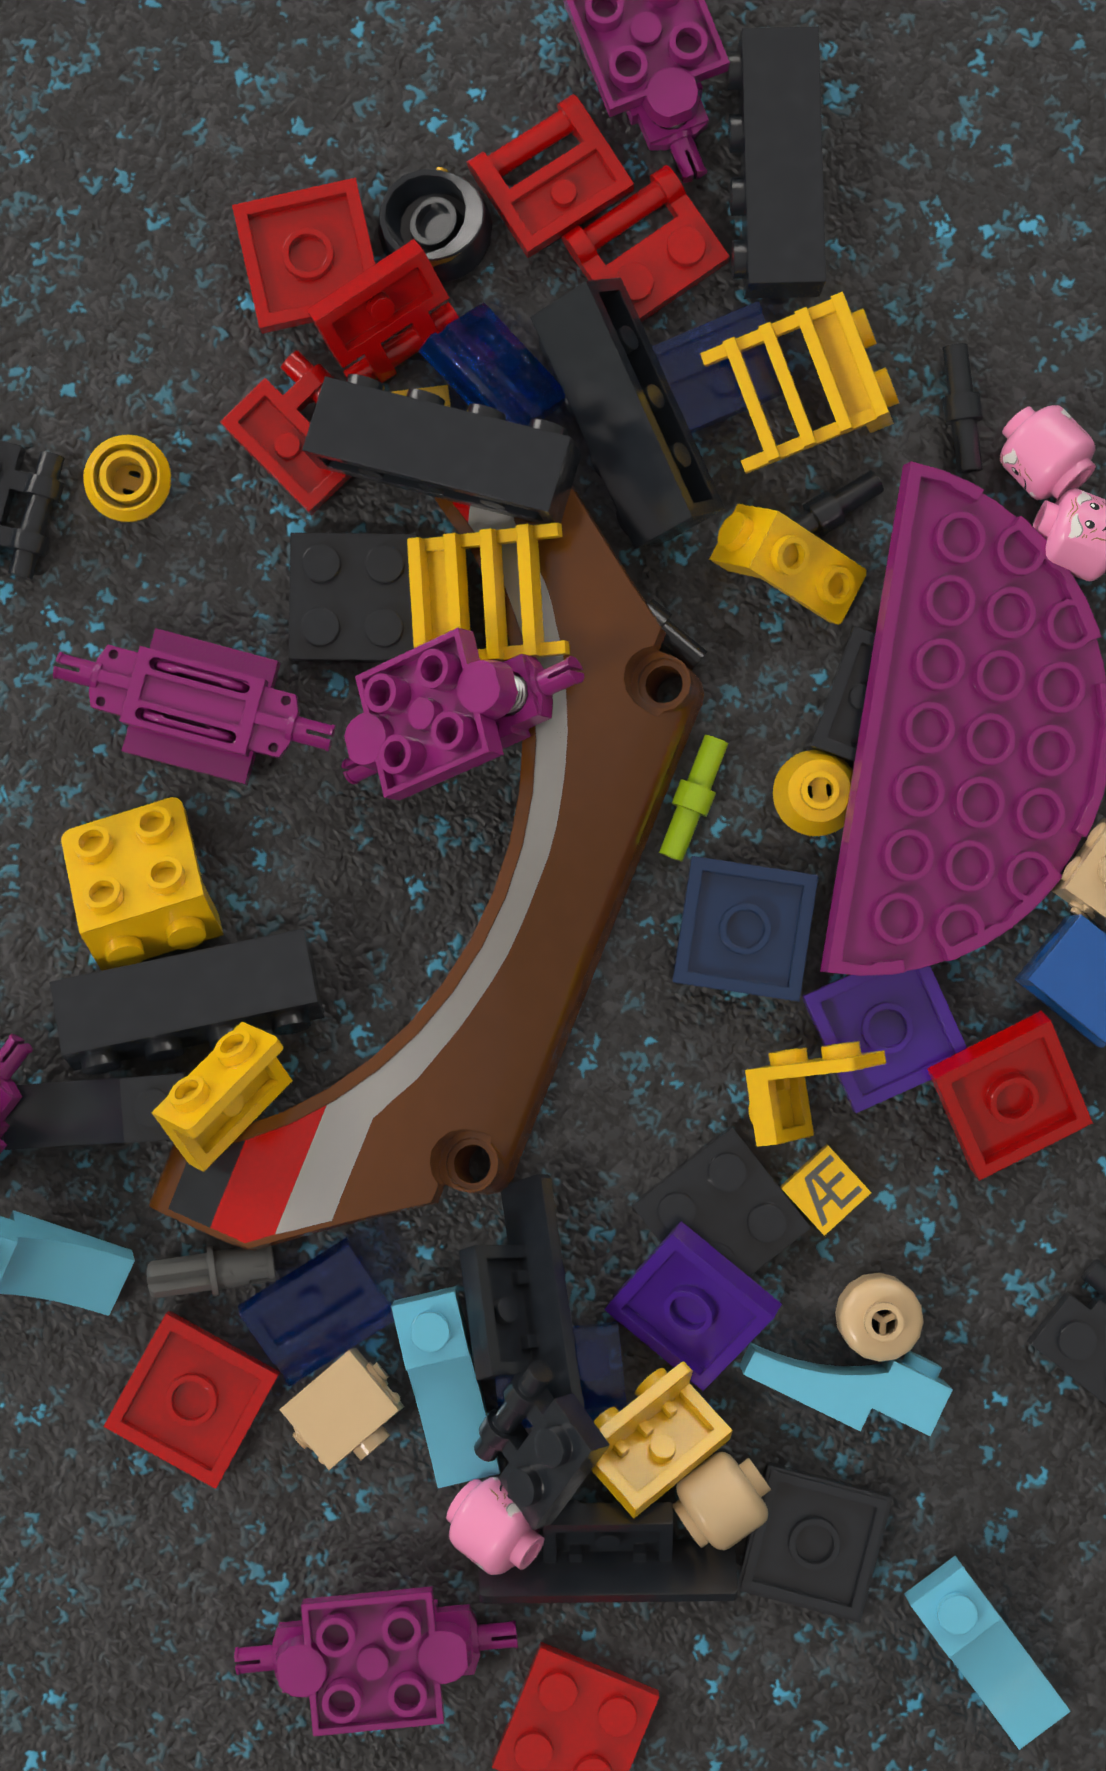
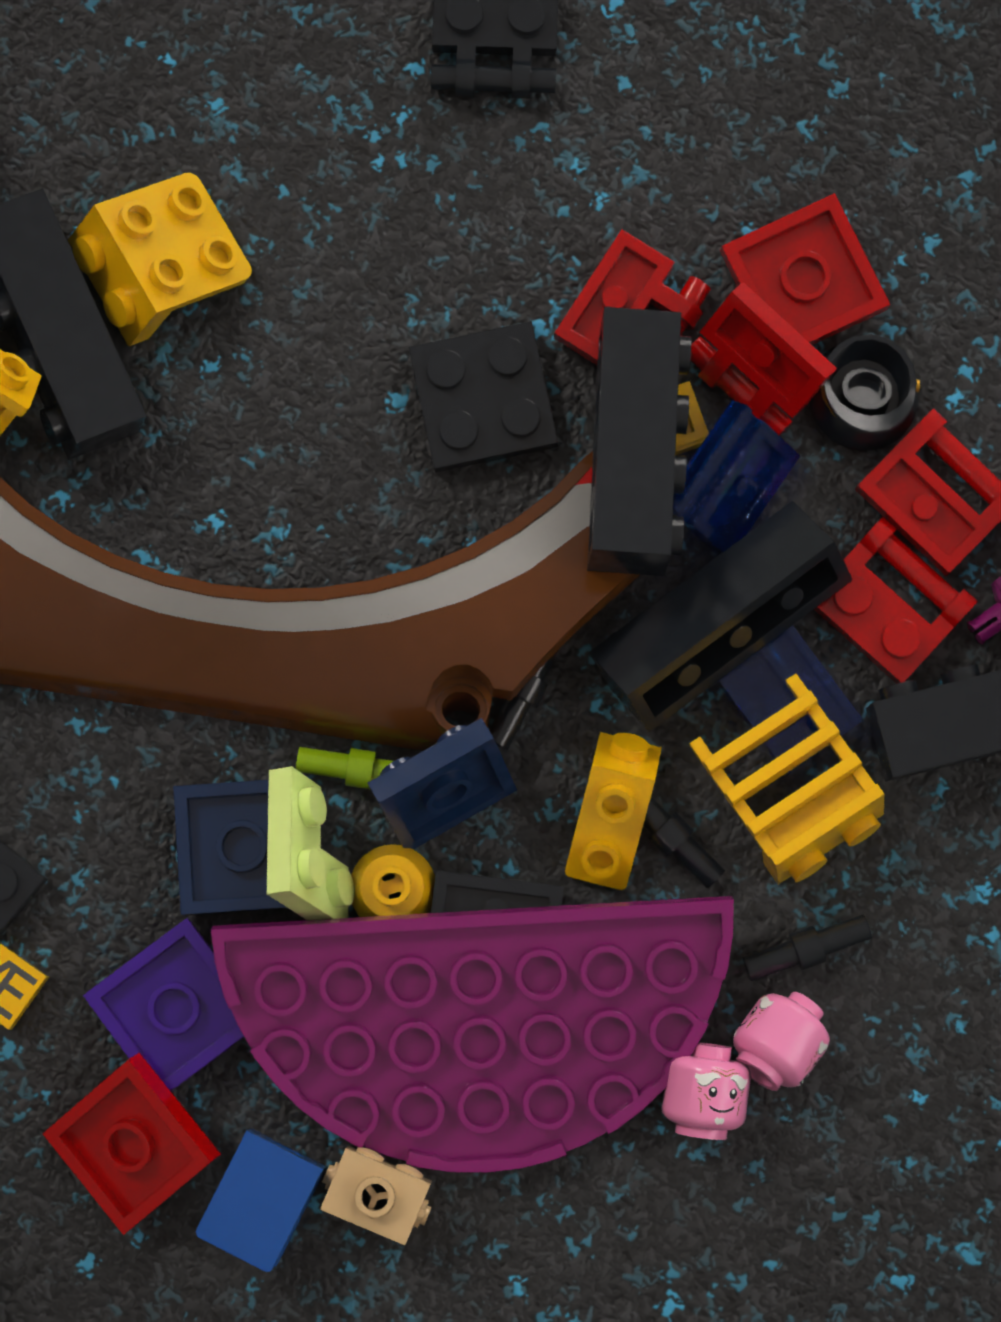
camera: 75 degrees right, 5 degrees down
(110, 472) = (546, 137): yellow cone -> none
(196, 704) = (342, 266): magenta piece -> none
(442, 597) = (492, 480): yellow plate -> none
(446, 712) = (376, 499): magenta piece -> none
(735, 718) = (442, 784): none -> dark blue plate
(779, 1090) = (89, 916): yellow bracket -> none
(792, 871) = (297, 868): none -> yellowish green plate

